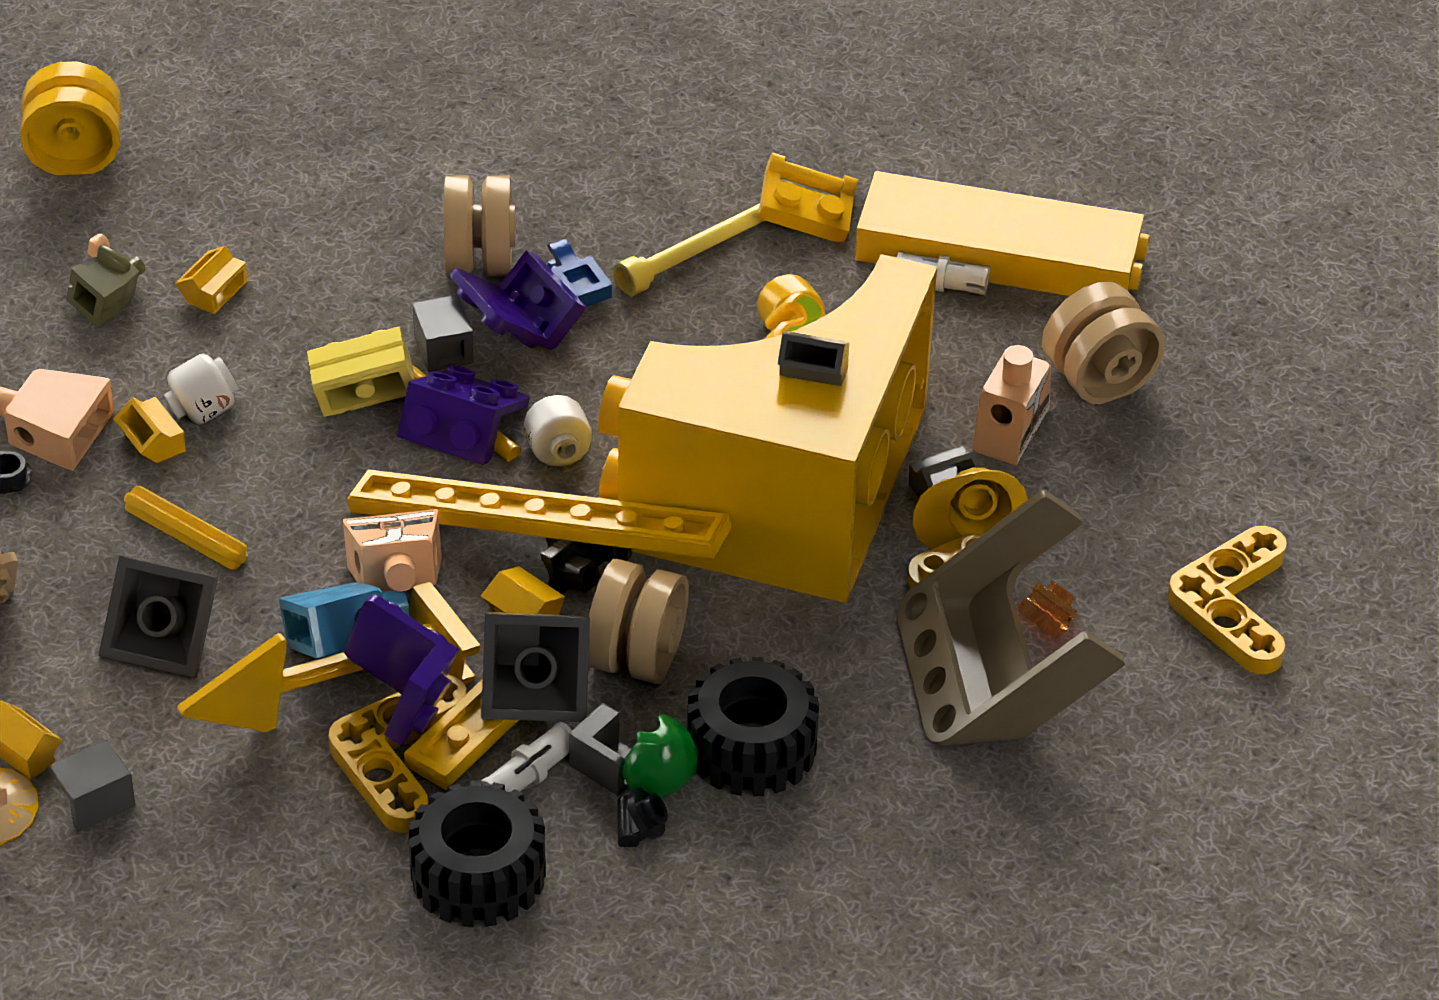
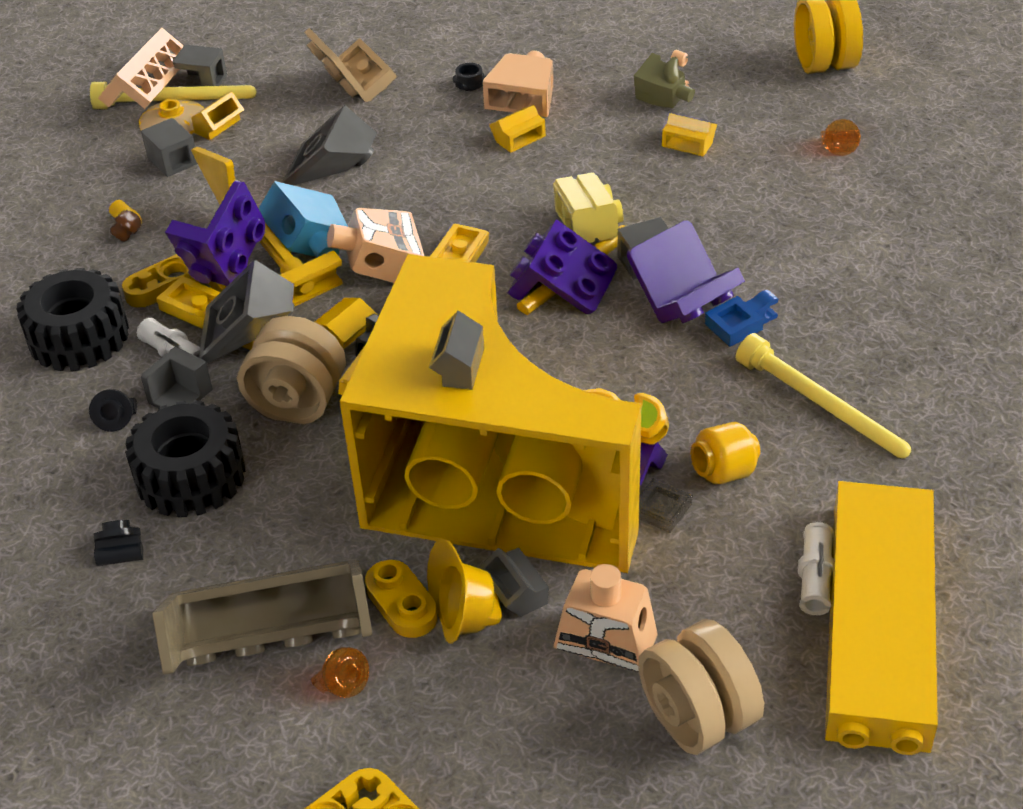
camera: 90 degrees right, 0 degrees up
(186, 527) = (423, 159): yellow axle -> none
(201, 389) = (559, 140): white head -> none
(241, 831) = (126, 219): none -> reddish brown arm
(260, 158) = (841, 137): none -> clear orange plate
(479, 225) = (764, 237): tan wheel -> none
(554, 428) = (536, 320): head -> none
(661, 759) = (146, 396): green hair -> none
(804, 208) = (881, 449): yellow plate -> none
(860, 794) = (117, 543): none -> black plate

